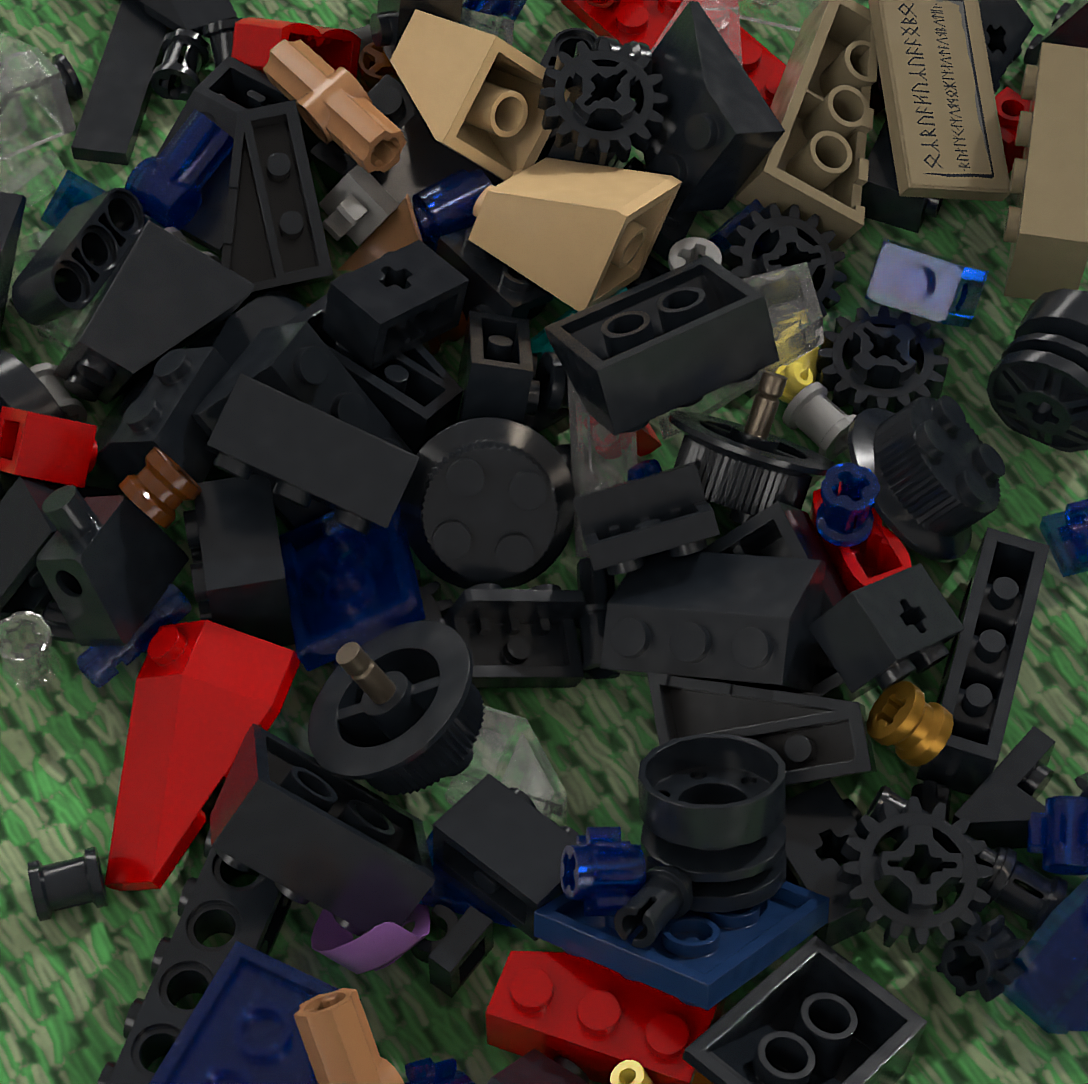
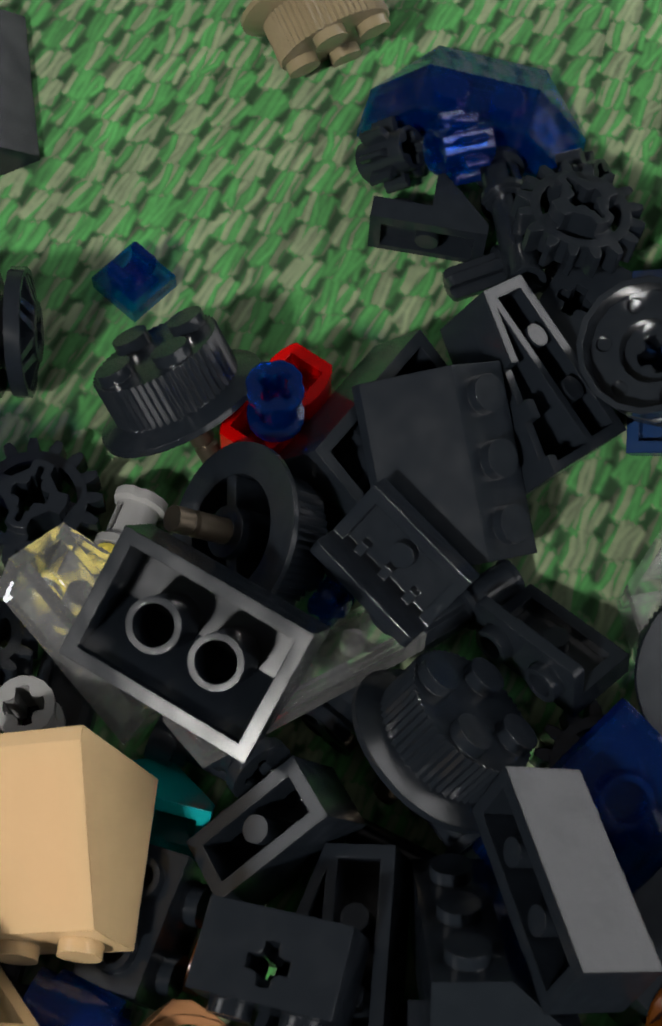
camera: 125 degrees left, 10 degrees up
(887, 630) = (383, 317): black brick -> none
(910, 723) = (443, 261): pearl gold wheel -> none
(986, 657) = (326, 278): black brick -> none

